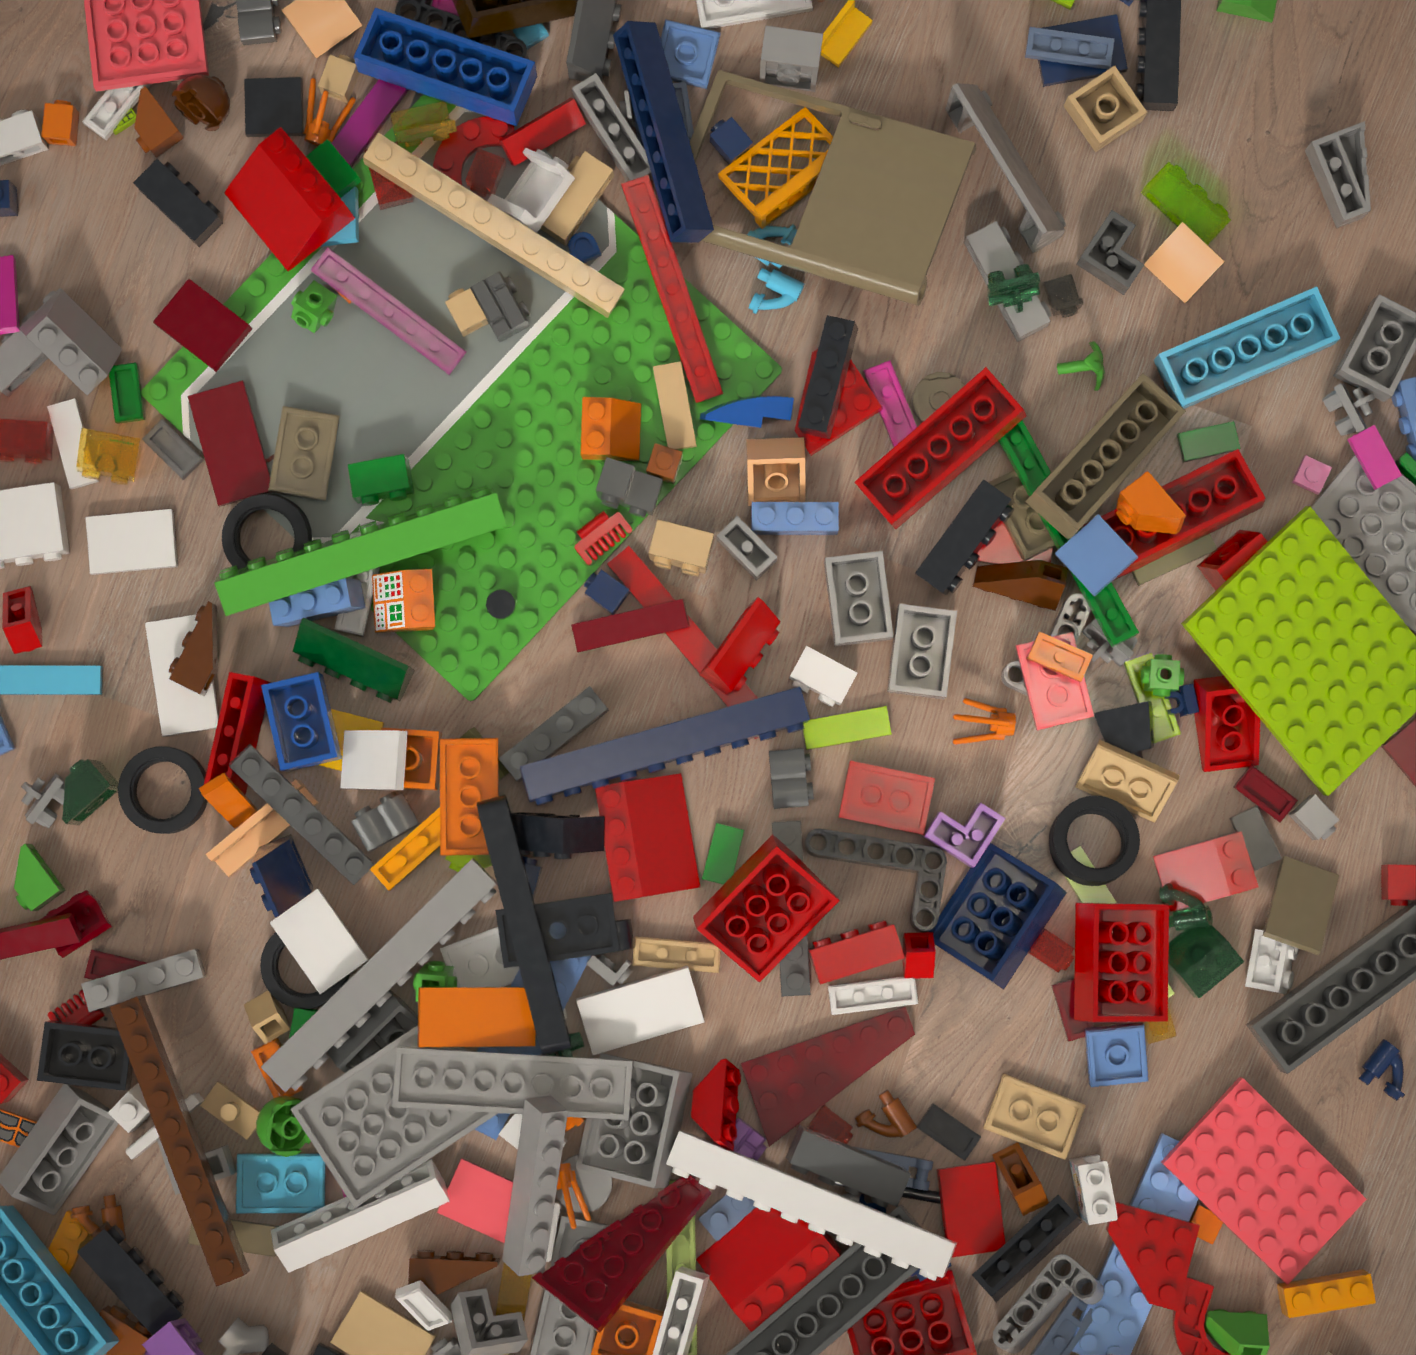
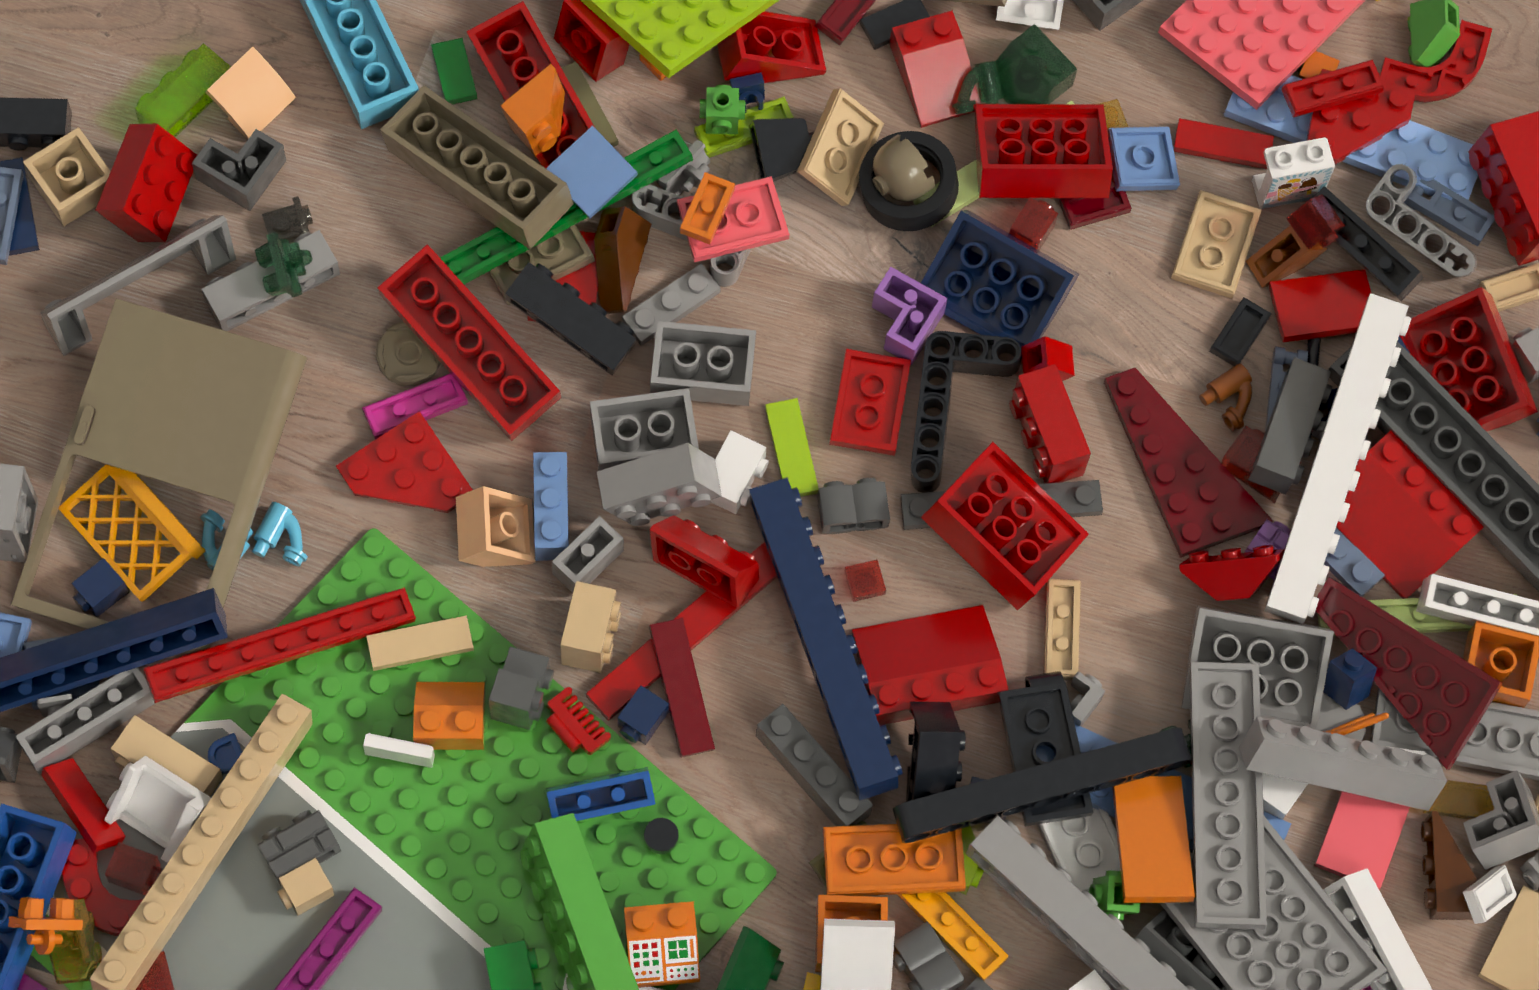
camera: 100 degrees left, 15 degrees down
(427, 98) = (31, 918): none -> orange hips
(531, 552) = (602, 795): none -> blue brick
(579, 387) = (399, 750): none -> white tile
(618, 1200) = (1349, 679): none -> dark blue brick
(640, 1010) = (1129, 665): white tile -> none
(664, 463) = (489, 648): dark orange brick -> none
(722, 785) = (865, 580): none -> clear red plate
(723, 854) = (943, 580): green tile -> none
(750, 410) = (424, 555): blue slope -> none
(802, 608) = (659, 484): none -> light grey brick
(828, 377) = (386, 464): black brick -> none
(872, 995) = (1094, 414): white tile -> none
(983, 627) = (672, 303): none -> light grey plate
(1000, 722) = (780, 283): orange plant -> none
(1040, 1205) = (1316, 223): none -> clear red brick
(1092, 362) = (367, 186): bright green plant -> none
(1095, 172) = (147, 183): none -> red brick
(1096, 830) = (900, 170): none -> dark tan cylinder
(1132, 1130) = (1222, 143): none -> red tile
(1176, 1232) = (1332, 88): none -> red tile

